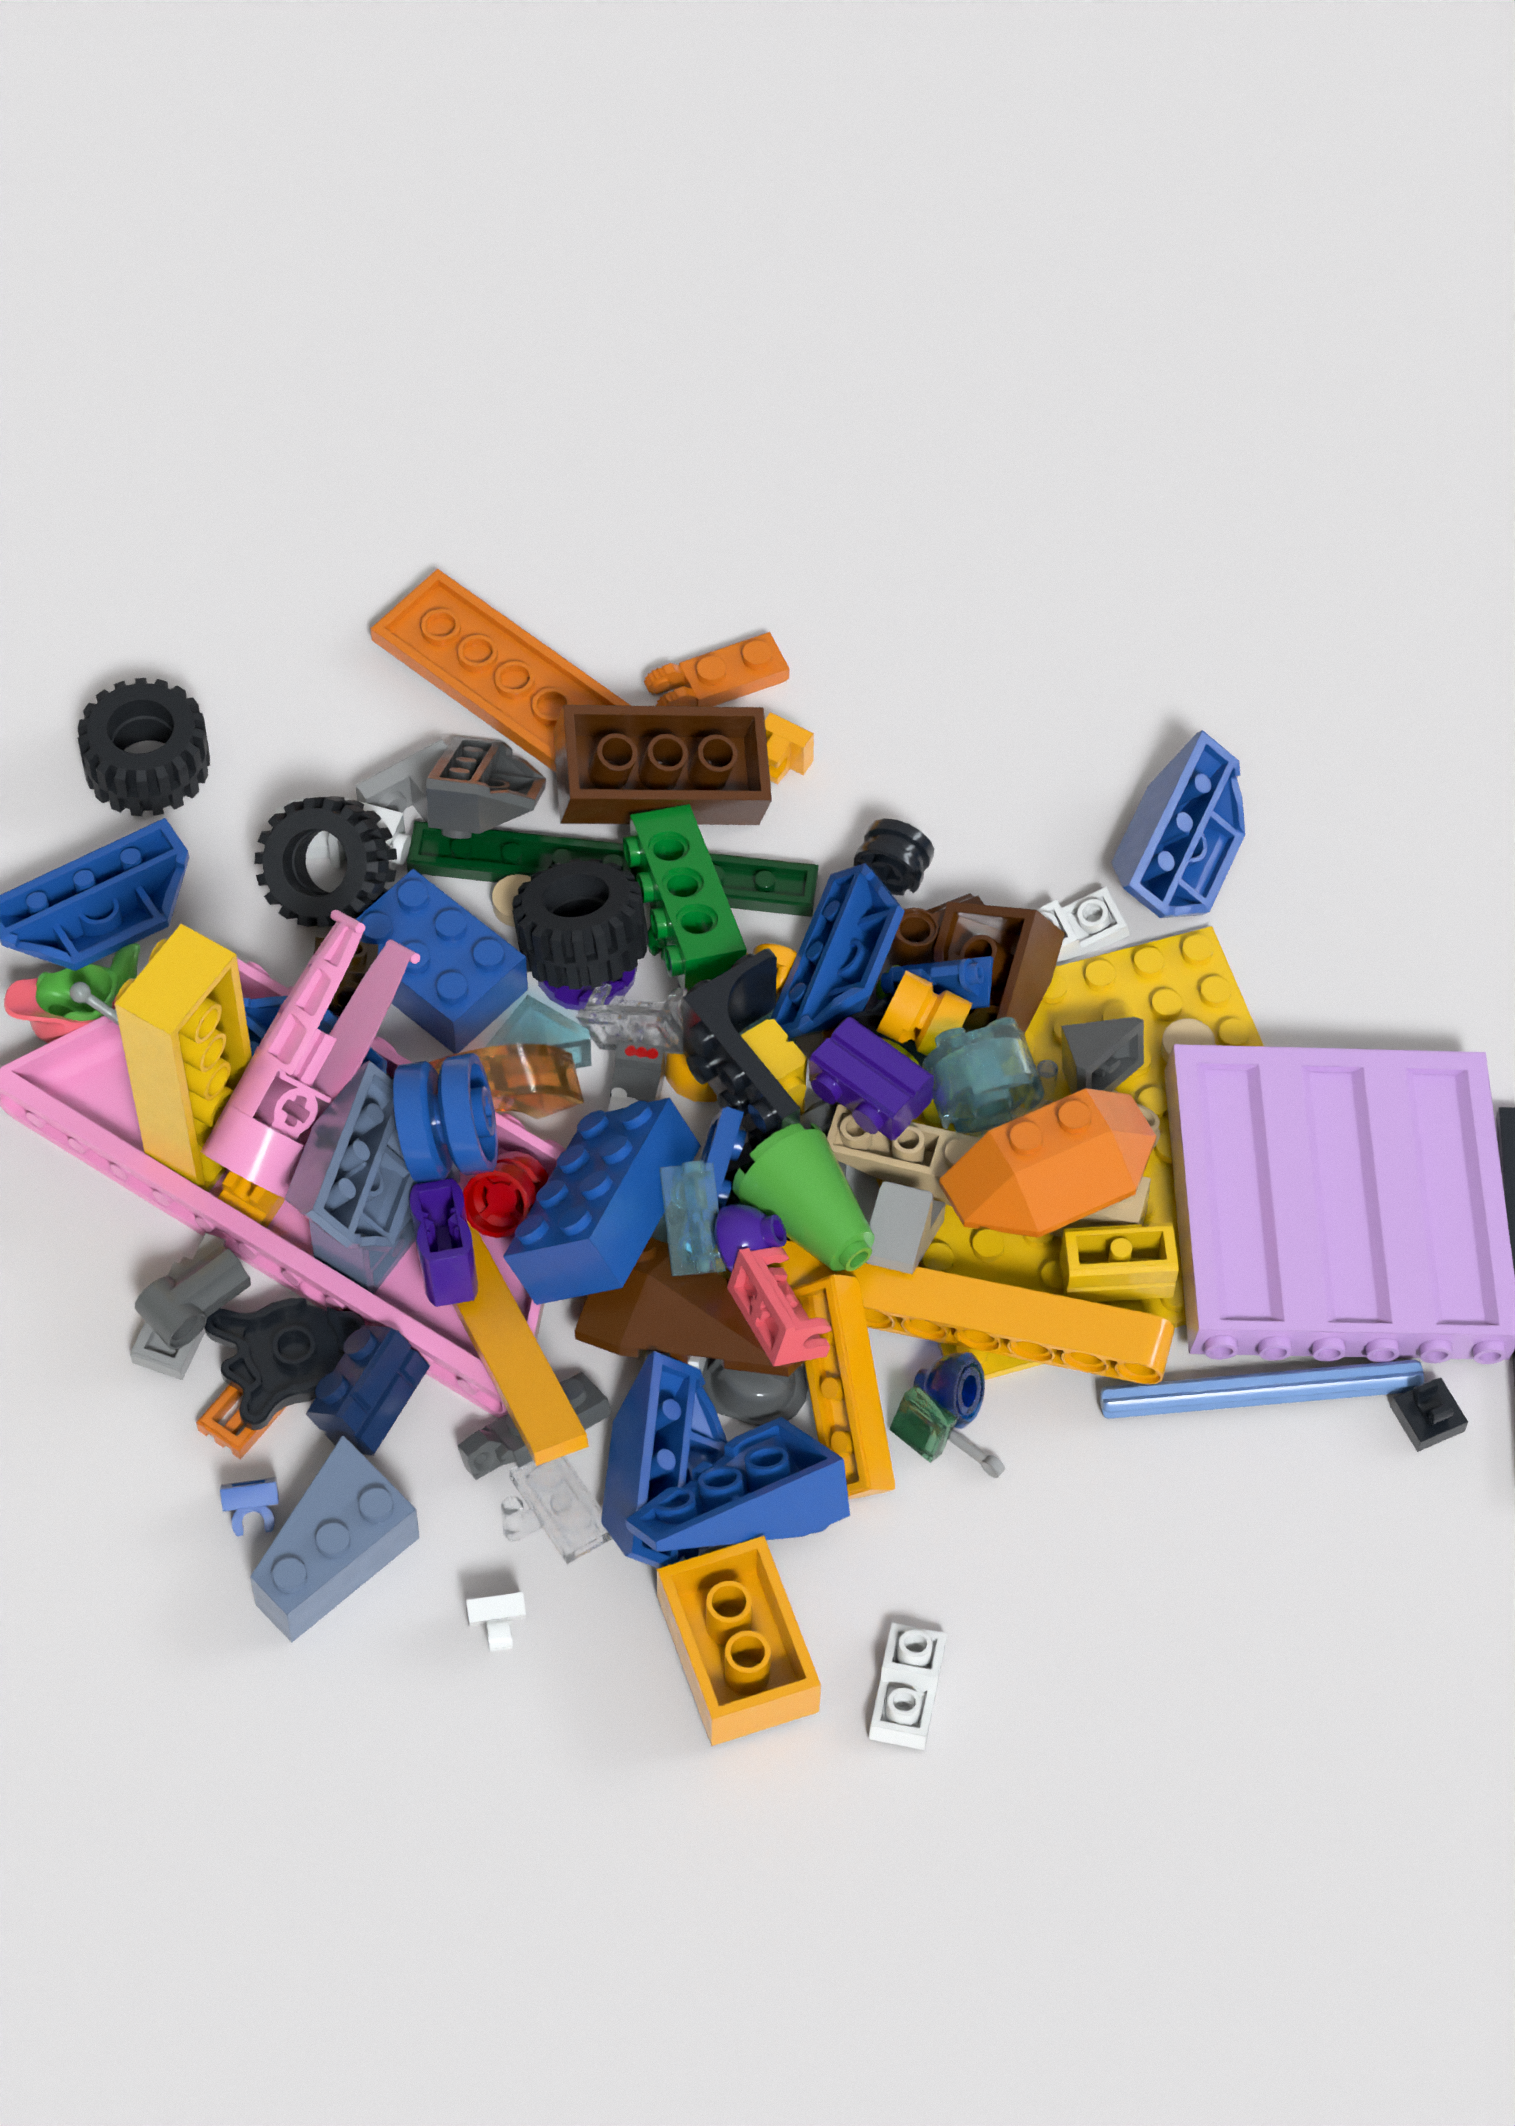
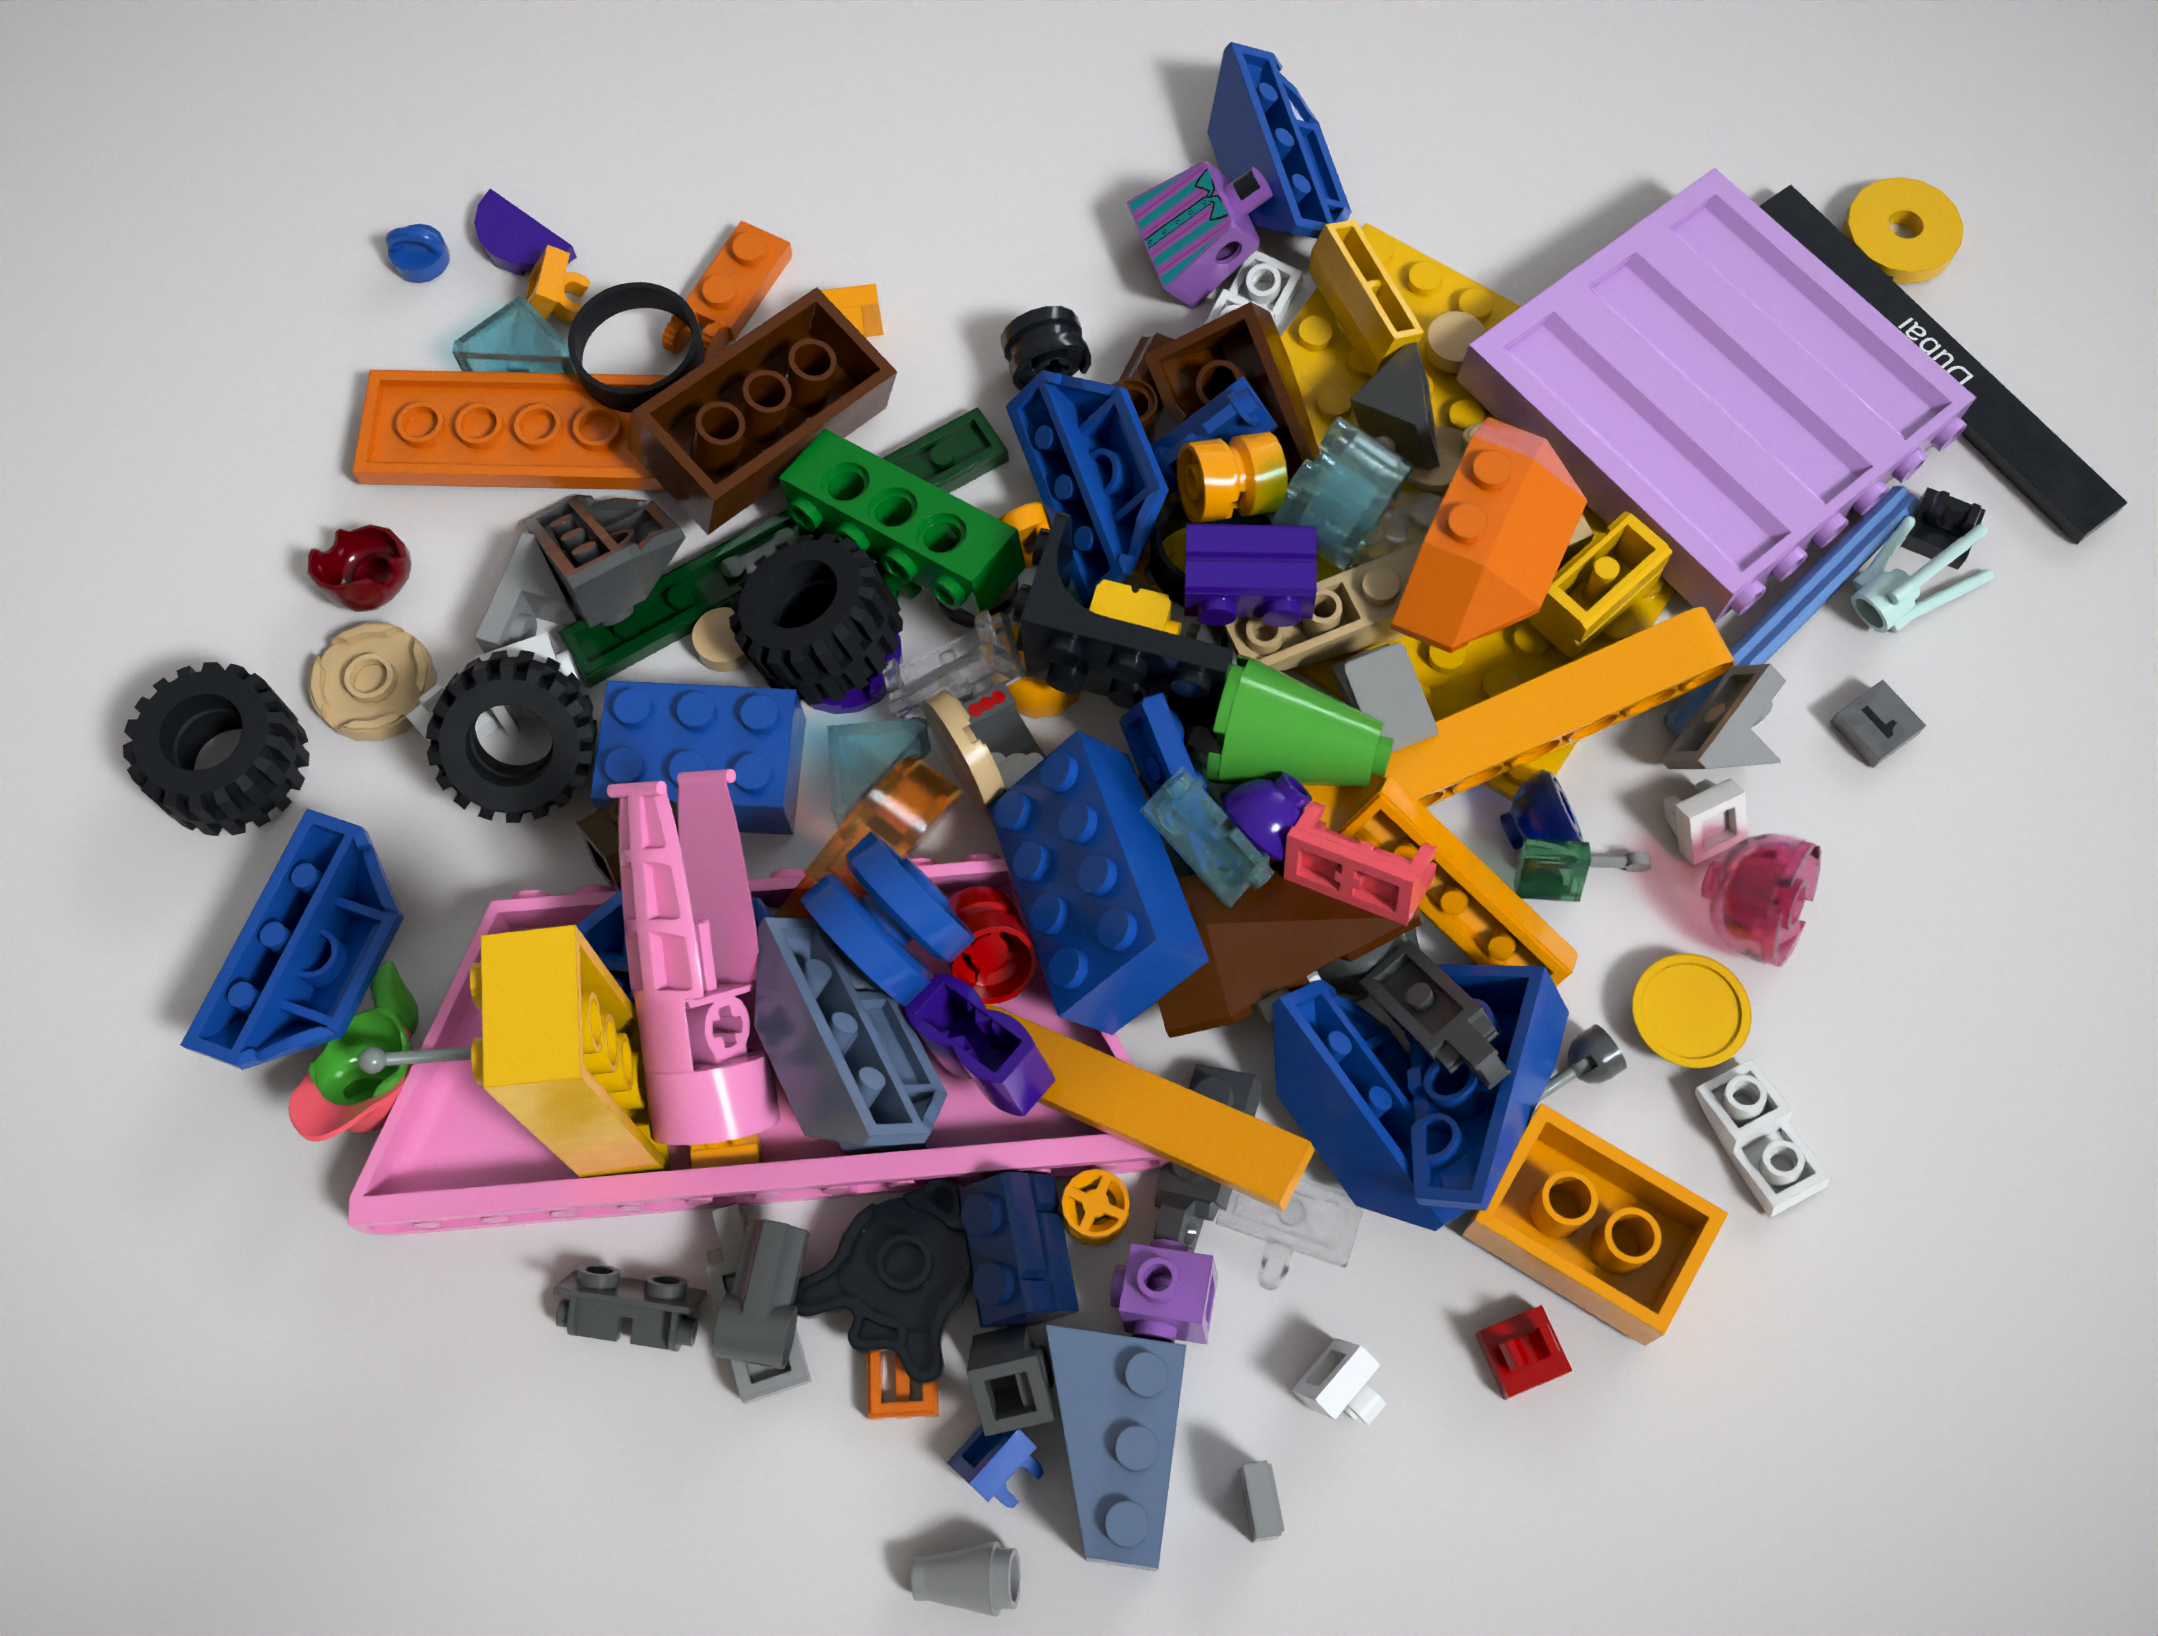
camera: 35 degrees left, 10 degrees up
(98, 1239) = (603, 1298): none -> dark grey hinge
(179, 1554) = (969, 1578): none -> light grey cone
(272, 769) = (371, 681): none -> tan tile
(302, 1456) = (1010, 1380): none -> dark grey brick
(324, 695) = (361, 568): none -> dark red hair
(386, 1642) = (1261, 1501): none -> light grey tile
(437, 1481) = (1165, 1292): none -> medium lavender brick
(445, 1395) = (1100, 1195): none -> light orange wheel
(537, 510) = (417, 252): none -> blue tile
(543, 613) = (513, 341): none -> clear light blue slope
(599, 592) = (549, 283): none -> light orange tile
(600, 1065) = (963, 752): none -> tan tile
(609, 544) = (512, 236): none -> dark purple tile
(619, 628) = (620, 299): none -> black tyre
(630, 1691) = (1523, 1352): none -> red tile
(747, 1435) = (1436, 1013): none -> dark grey hinge
(838, 1555) = (1591, 1058): none -> dark grey hinge
(934, 1575) = (1691, 1010): none -> yellow piece
(1049, 1541) = (1762, 894): none -> clear pink cylinder
(1061, 1472) = (1709, 820): none -> tile
(1072, 846) = (1199, 227): none -> medium lavender torso
(1112, 1421) = (1722, 726): none -> light grey slope
(1153, 922) = (1362, 294): none -> yellow piece
(1249, 1502) = (1877, 723): none -> flat silver tile
(1336, 1420) = (1889, 598): none -> light aqua plant

